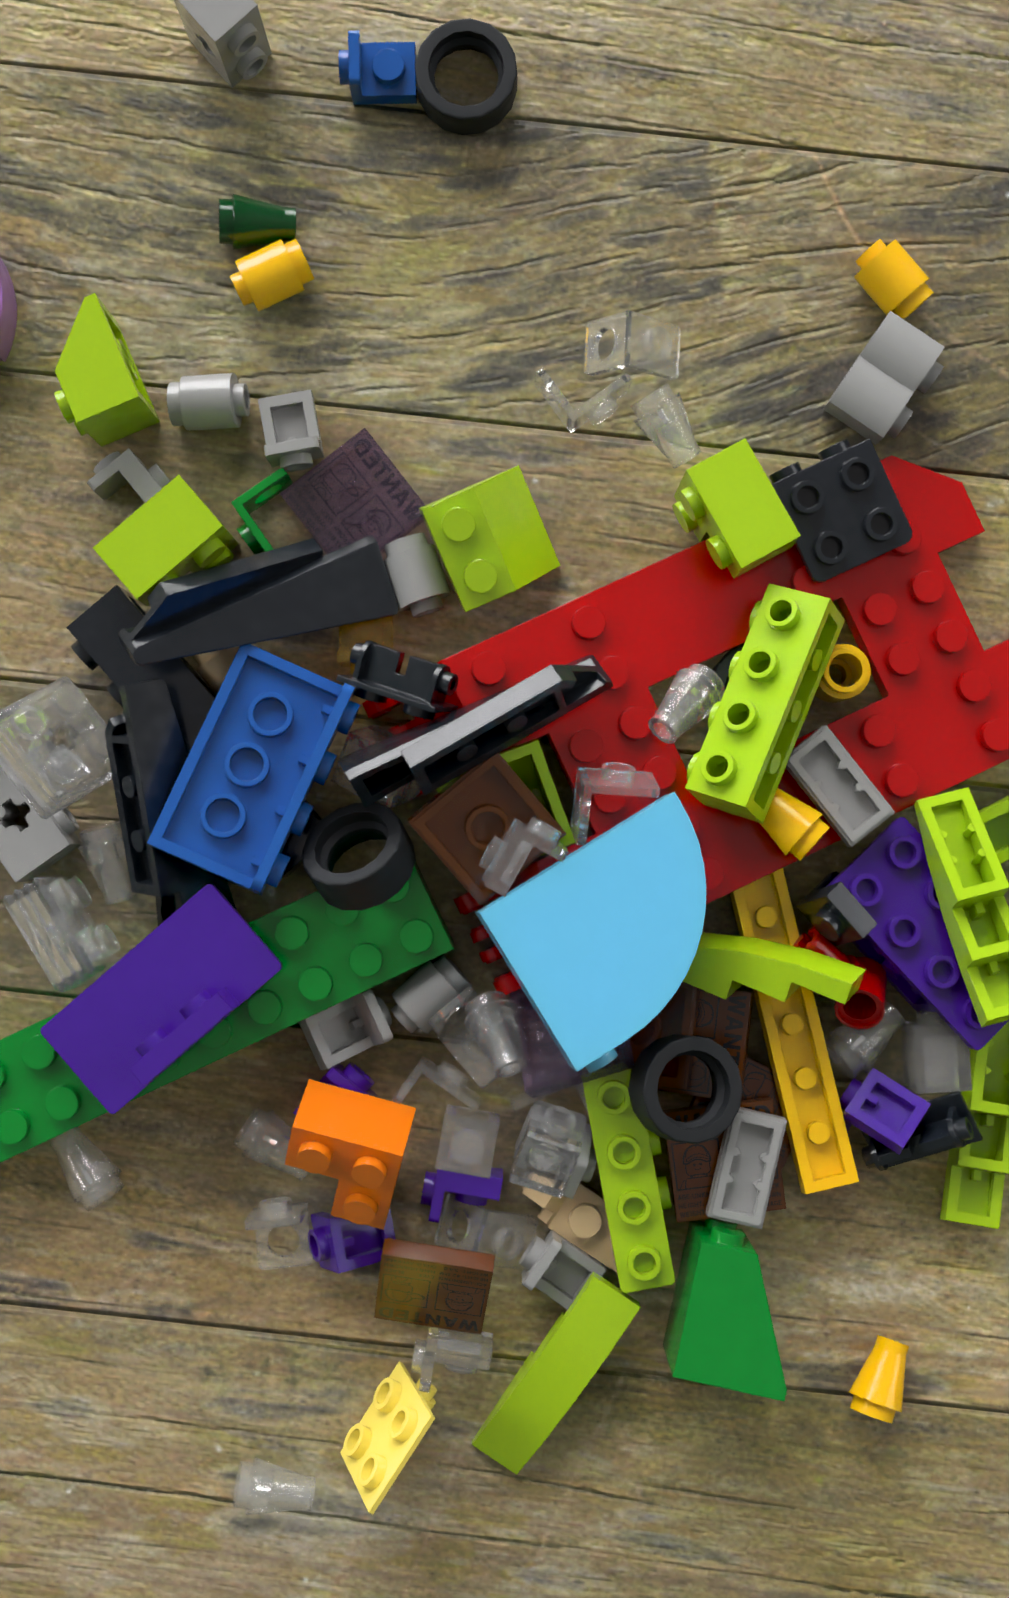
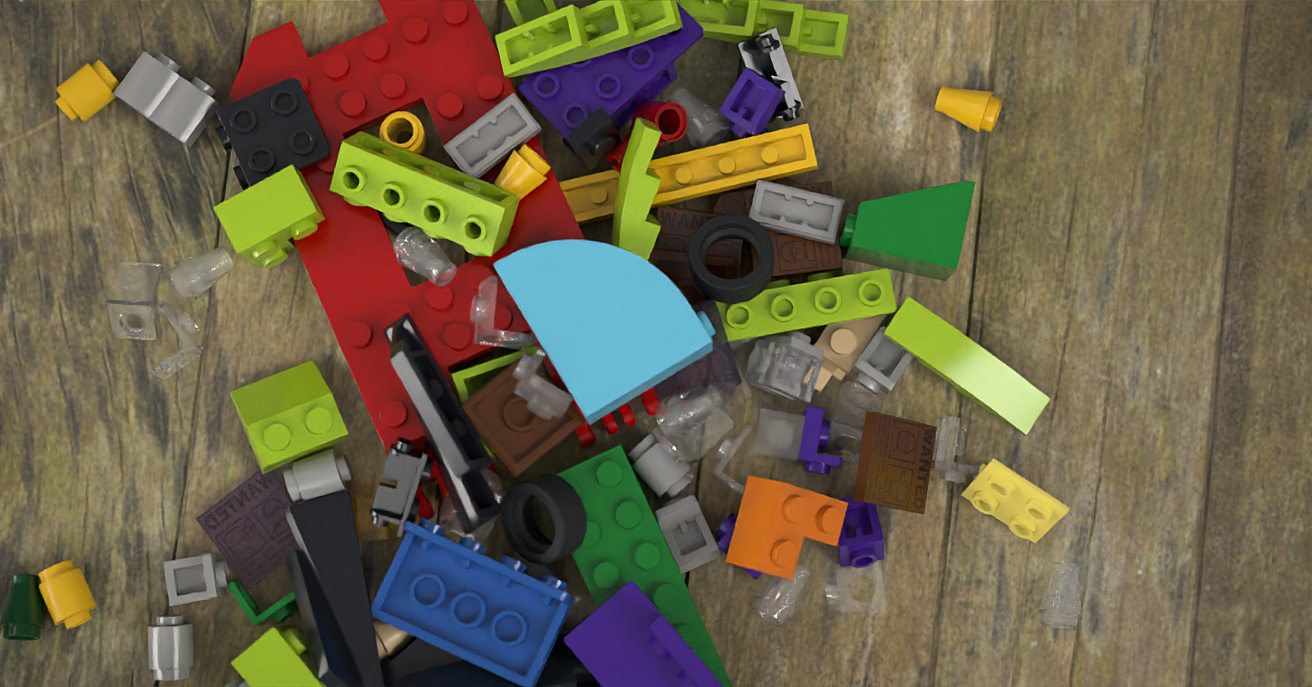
camera: 85 degrees left, 5 degrees down
(934, 1056) = (710, 63): clear brick -> none

